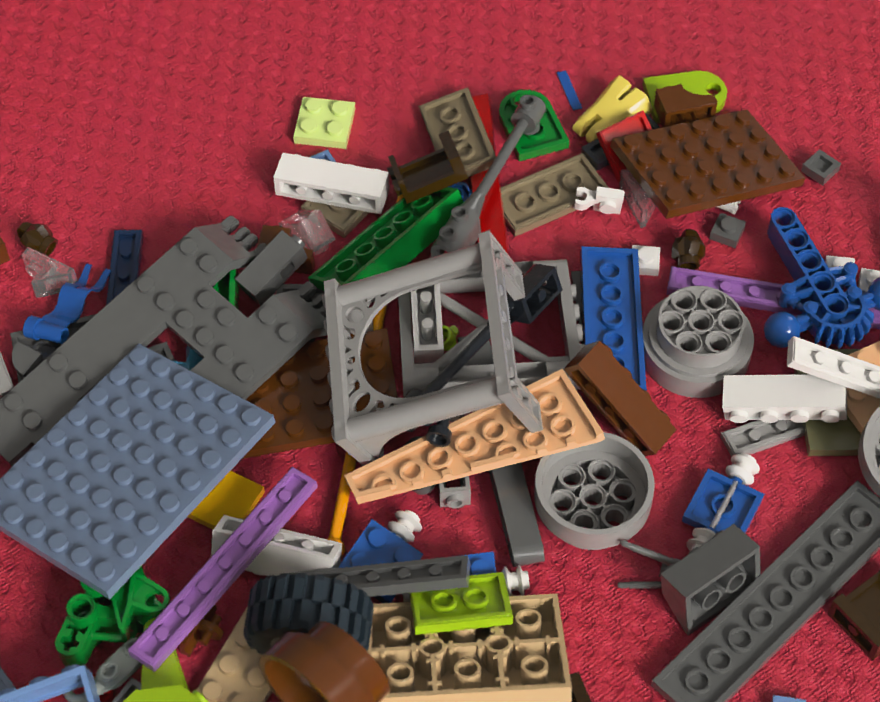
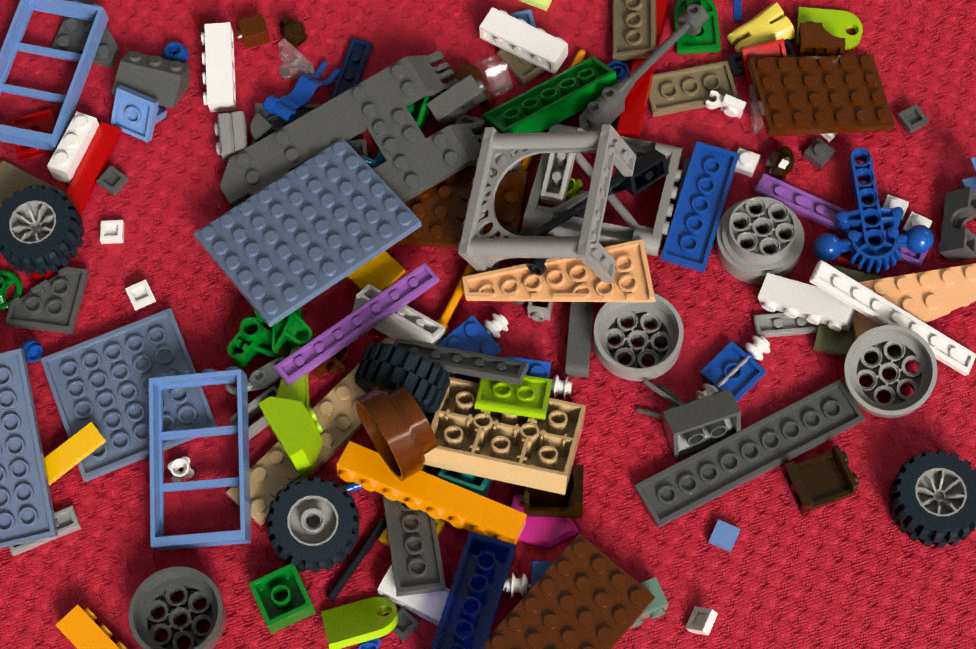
camera: 20 degrees right, 10 degrees up
(429, 172) = (598, 50): dark brown panel -> none
(620, 398) = (681, 271): reddish brown brick -> none

